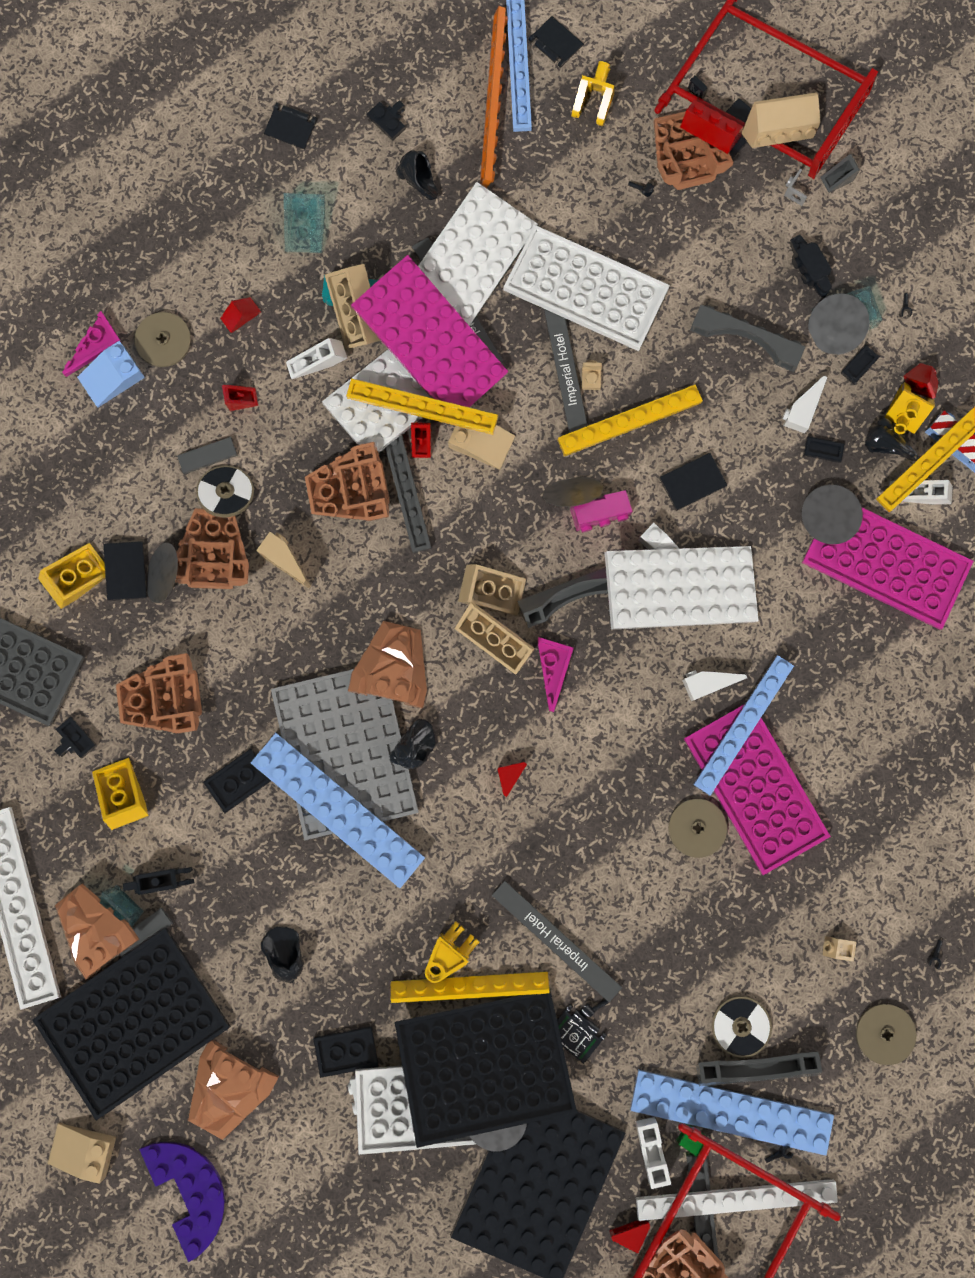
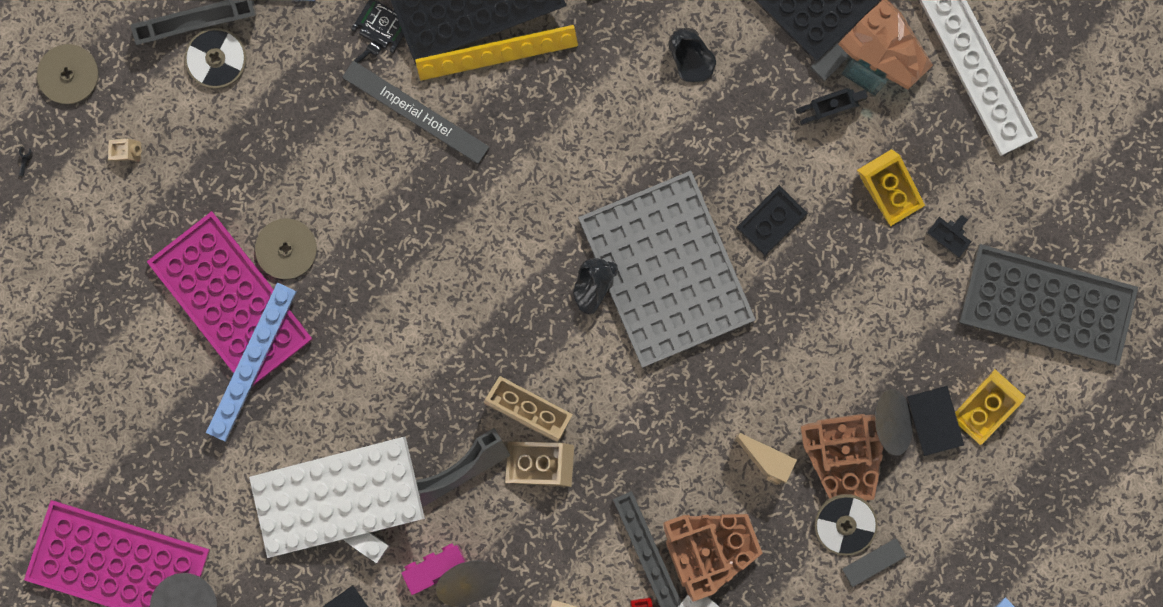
camera: 165 degrees right, 0 degrees up
(162, 696) = (867, 292): nougat wedge -> none
(338, 810) = (662, 206): light blue plate -> none
(392, 666) = (631, 364): nougat wedge -> none
(447, 955) = (522, 78): yellow piece -> none
(509, 775) = (489, 270): red slope -> none
(554, 664) = (460, 395): dark pink wing -> none
(708, 682) = (297, 400): white slope -> none

